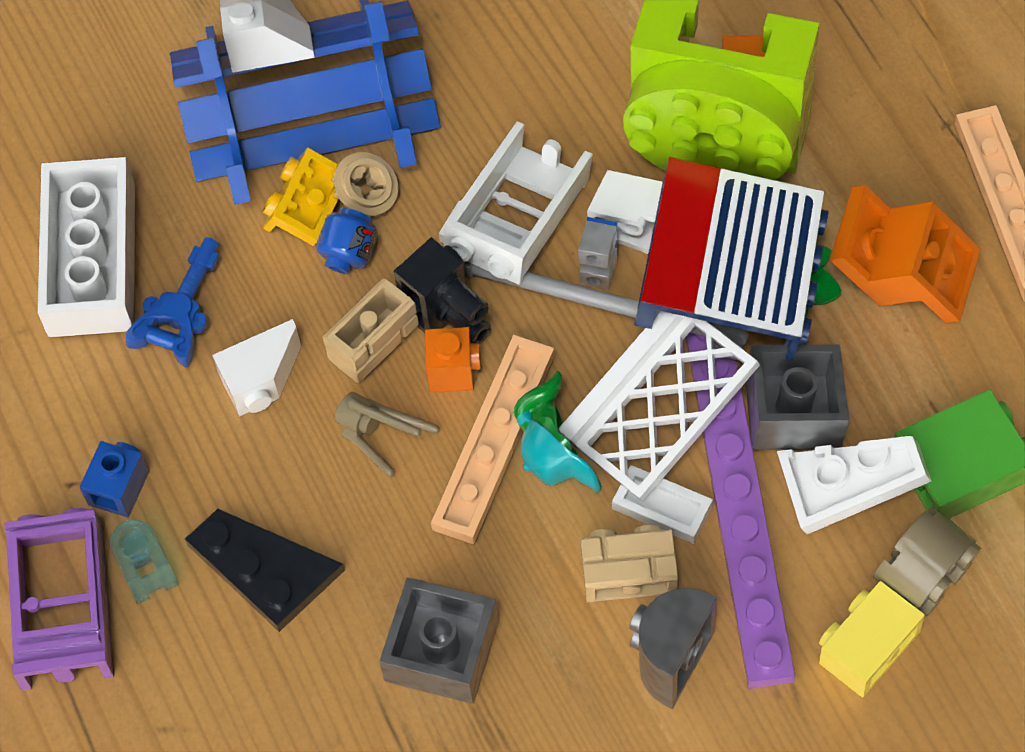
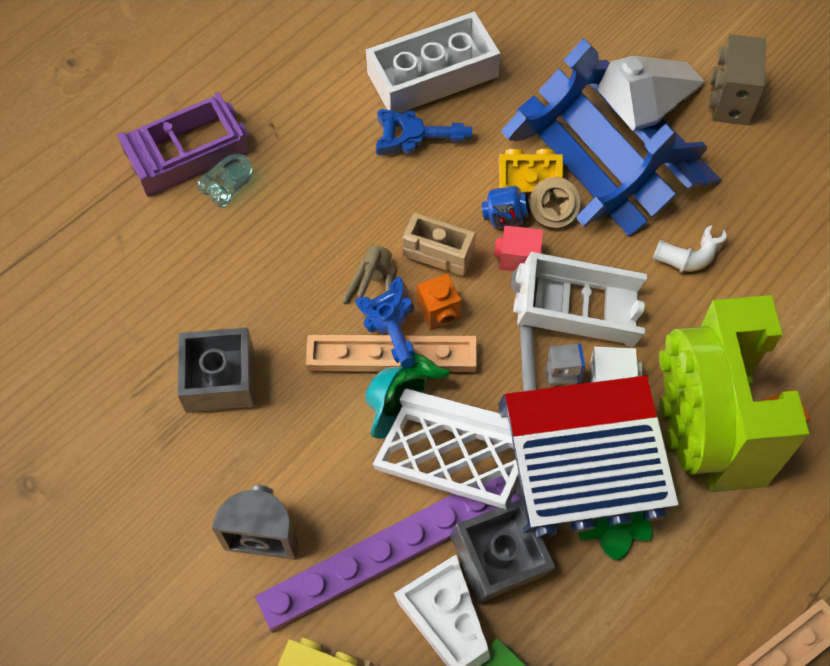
camera: 65 degrees right, 0 degrees up
(114, 478) = (277, 142): blue brick -> none
(258, 367) = (387, 191): white slope -> none
(262, 566) = (246, 249): black wing -> none
(408, 235) = (516, 246): none -> coral brick
(438, 287) = (484, 273): black brick -> none
(452, 419) = (388, 314): none -> blue piece
(505, 75) = (690, 260): none -> white piece
(628, 563) = (321, 477): tan brick -> none
(665, 506) = (382, 491): white tile -> none
(905, 254) = (666, 597): orange bracket -> none

